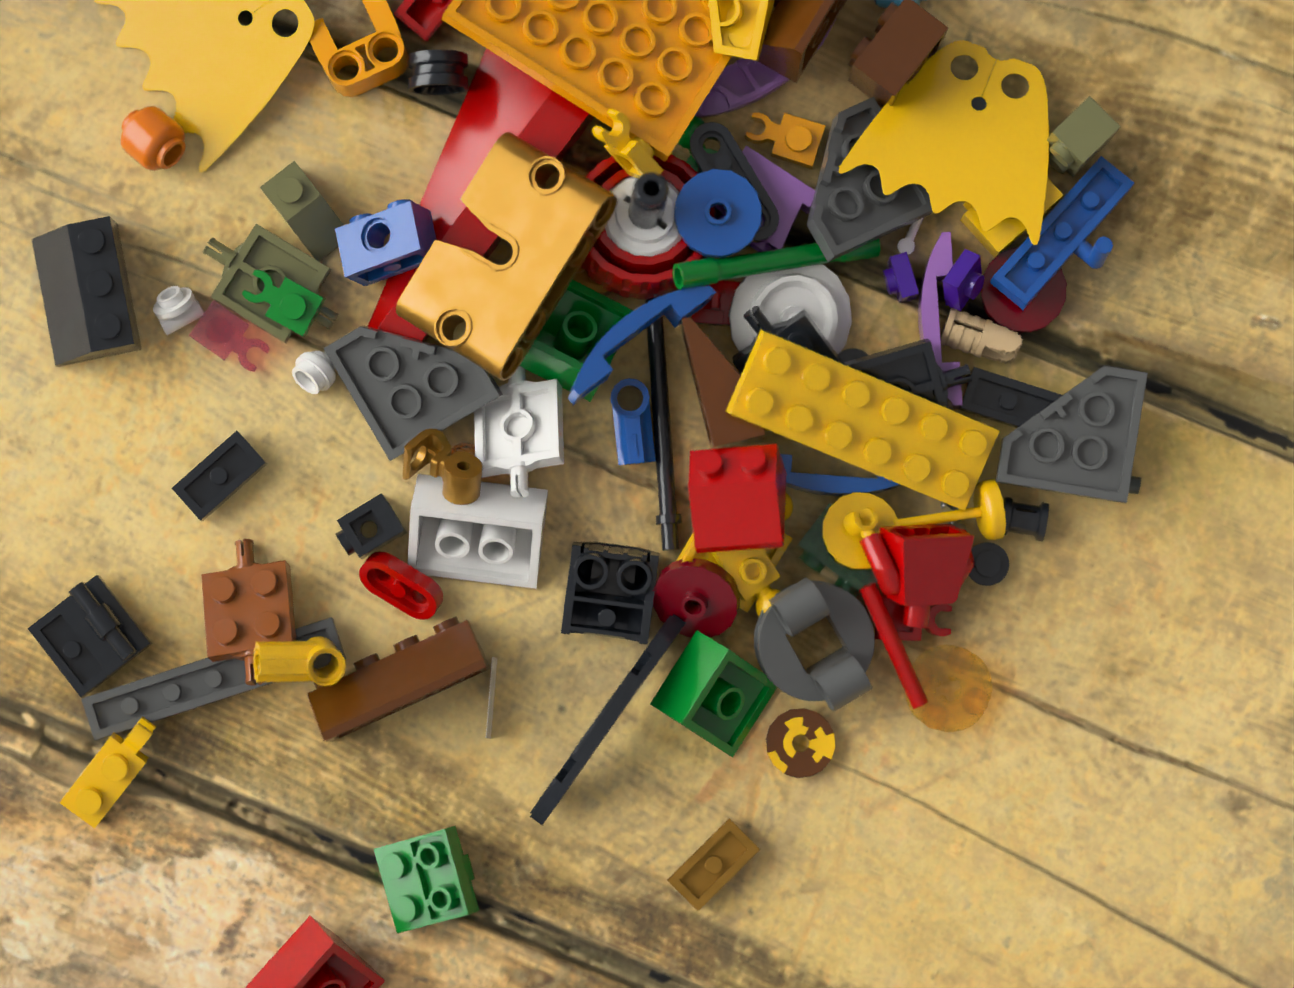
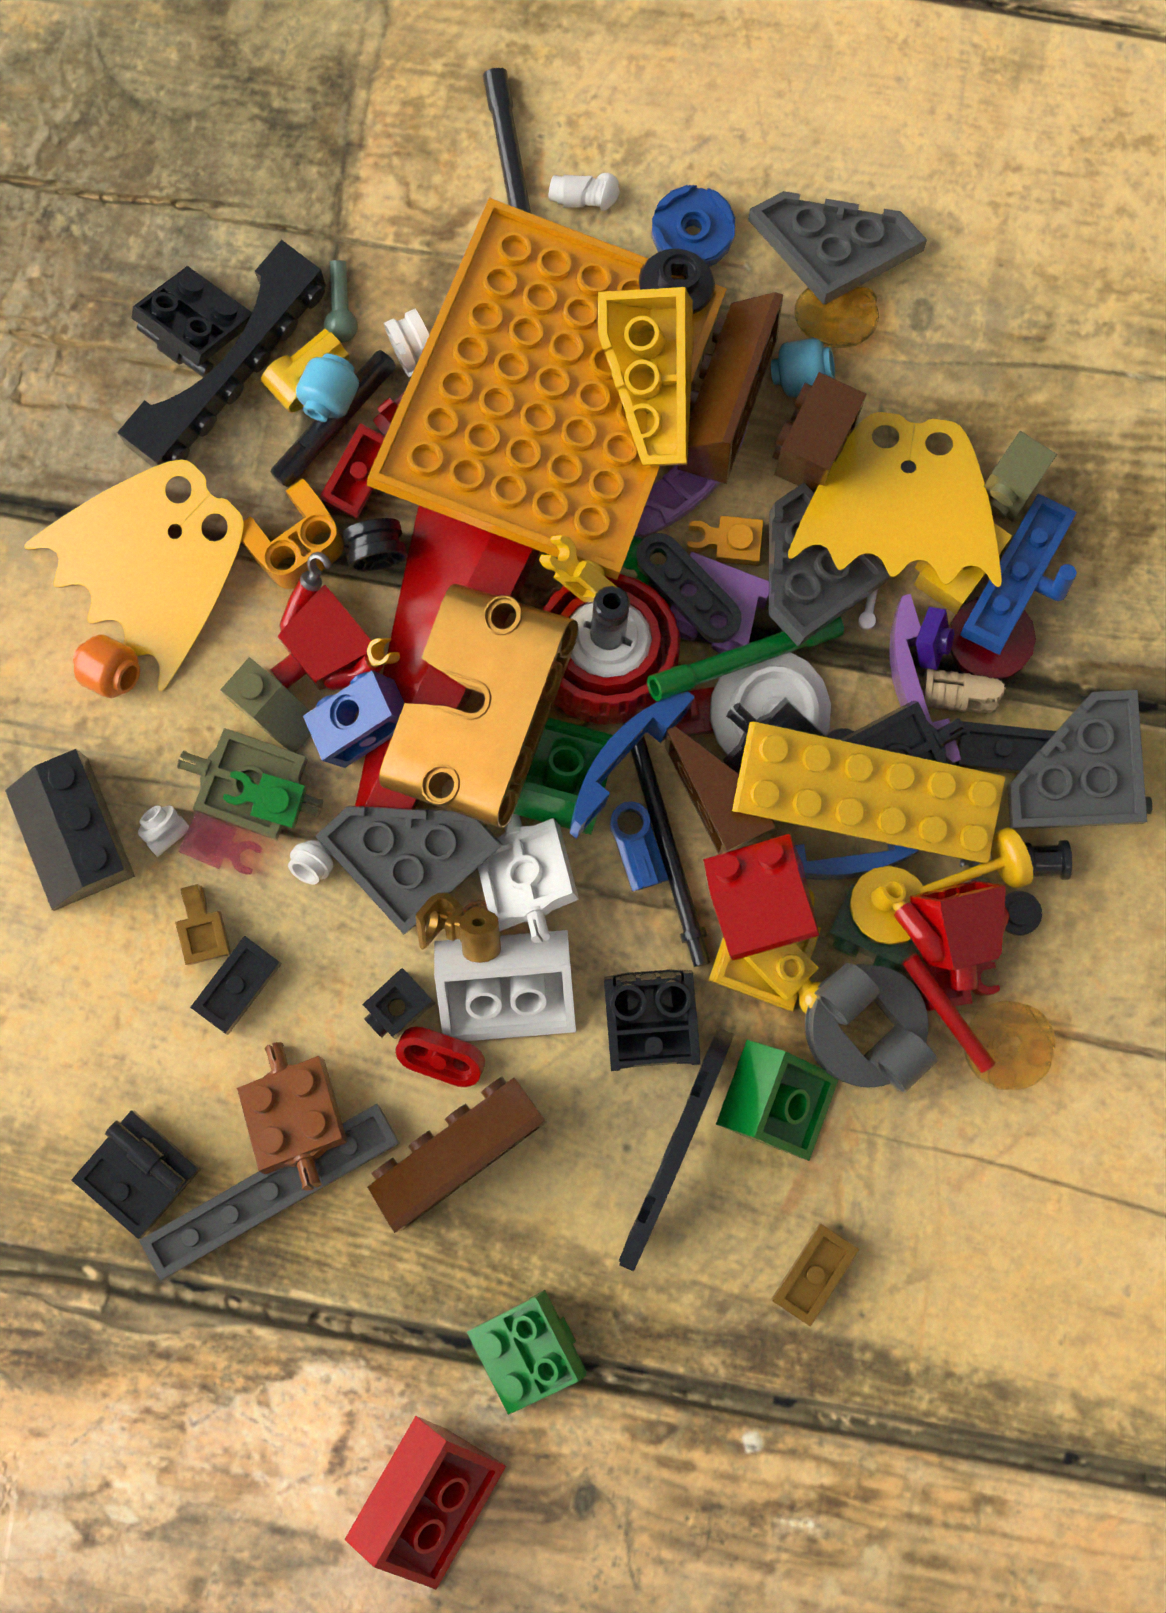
camera: 10 degrees left, 5 degrees down
(108, 774) = (181, 1312): yellow plate -> none
(196, 419) = (203, 933): none -> pearl gold plate
(294, 661) = (347, 1156): yellow piece -> none
(371, 154) = (324, 637): none -> red torso
(491, 697) = (554, 1151): white sticker -> none
(700, 582) = (740, 990): dark red plate -> none
(714, 236) = (674, 641): blue plate -> none
(819, 736) = (894, 1129): reddish brown piece -> none
(900, 278) = (870, 650): dark purple plate -> none

